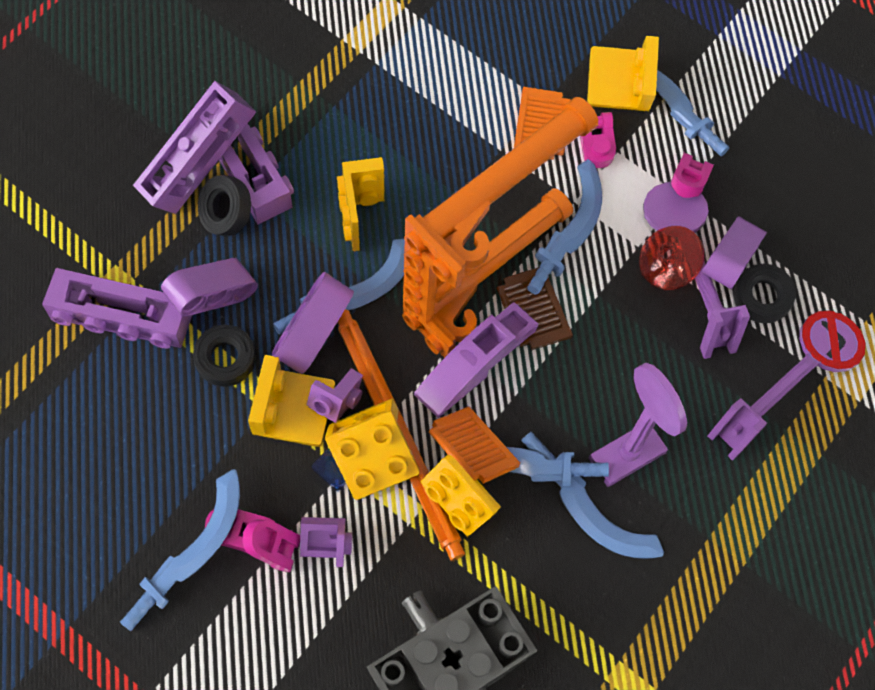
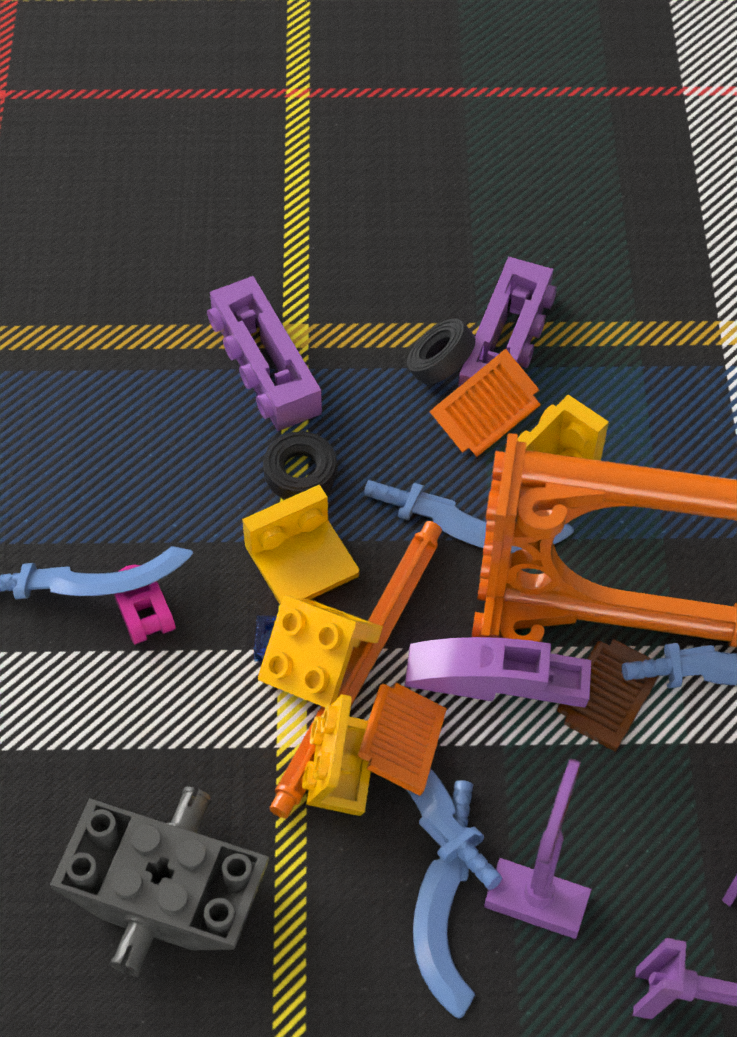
camera: 55 degrees right, 10 degrees down
(194, 148) = (465, 280): medium lavender brick -> none
(209, 286) = (347, 396): medium lavender beam -> none
(263, 540) = (142, 622): dark pink plate -> none
(289, 211) = (487, 404): none -> orange window
(312, 323) = (395, 505): medium lavender beam -> none
(325, 538) = (192, 678): medium lavender bracket -> none
(334, 402) = (340, 583): medium lavender bracket -> none

